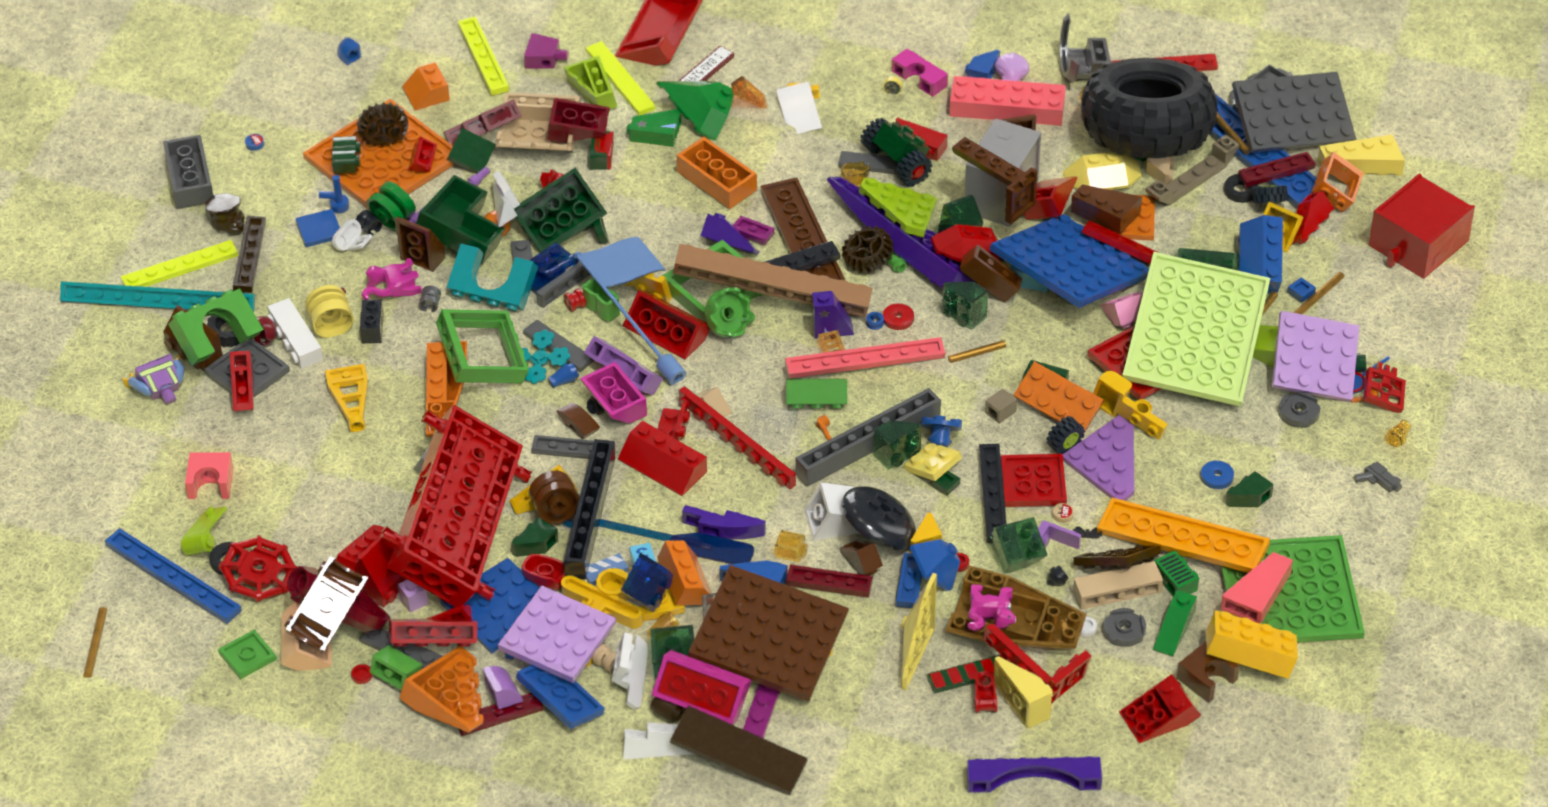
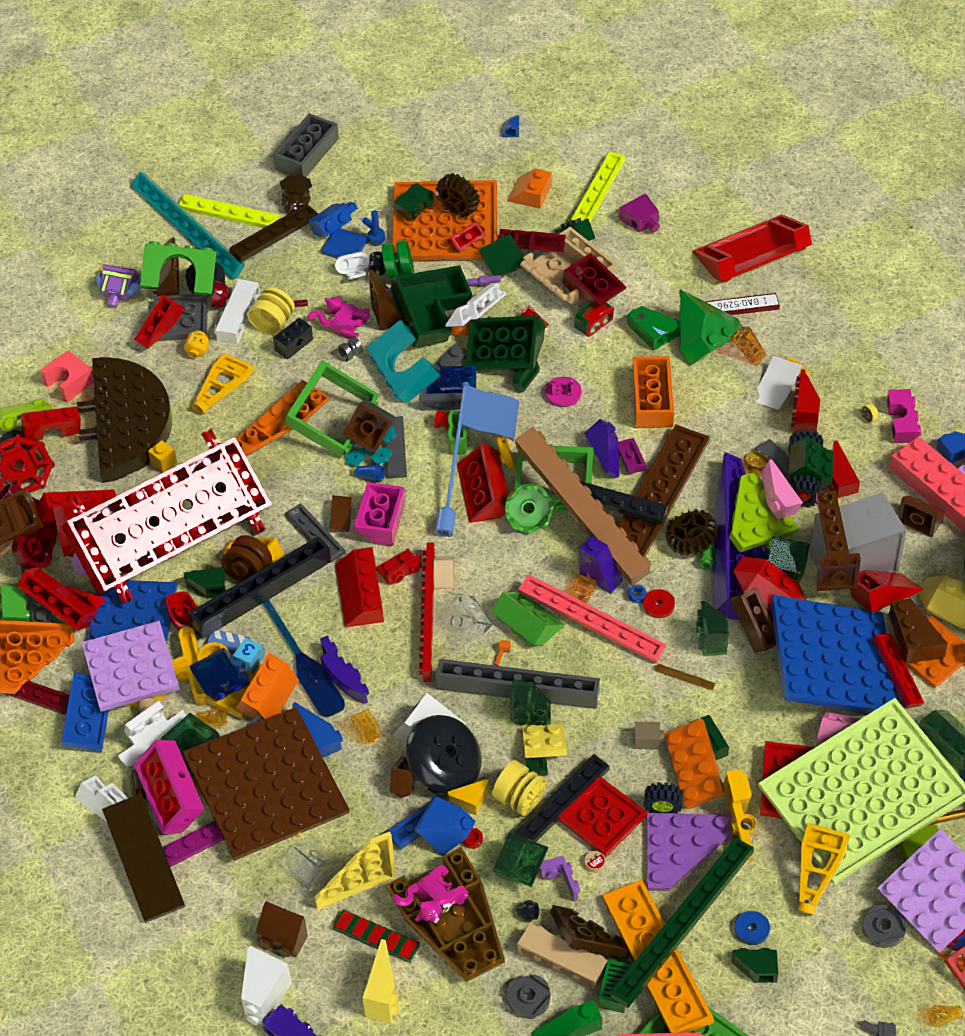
camera: 45 degrees right, 5 degrees up
(254, 142) = (377, 154): blue tile -> none
(254, 508) = (37, 423): none -> red arch
(286, 213) = (332, 218): none -> blue hinge
(292, 379) = (196, 344): none -> yellow head
(304, 466) = (130, 416): none -> dark brown brick
(376, 478) = (162, 456): none -> yellow brick
(497, 98) = (583, 227): none -> dark green slope
(501, 686) = (57, 676): medium lavender brick -> none
(531, 337) = (369, 425): none -> reddish brown slope
(591, 82) = (647, 261): lime wedge -> none
(621, 79) = (675, 271): neon yellow tile -> none
(641, 376) = (414, 478): medium lavender arch -> none
(642, 219) = (563, 385): none -> dark pink plate
(829, 580) = (362, 776): dark red plate -> none
(845, 107) = (807, 405): none -> red slope
(867, 665) = (309, 864): none -> clear slope
(900, 177) = (779, 493): none -> bright pink slope
(905, 715) = (281, 930): none -> reddish brown slope
(937, 758) = (263, 985): none -> white slope
(941, 429) = (576, 720): blue plate -> none
(959, 500) = (519, 788): none -> light yellow wheel
(985, 696) = (358, 964): red piece -> none
(1063, 678) = (420, 999): red bracket -> none
(1088, 534) = (589, 888): black piece -> none
(1089, 627) = (504, 971): white tile -> none
(1177, 498) = (681, 922): none -> dark green plate
(1213, 375) = (823, 839): none -> yellow plate

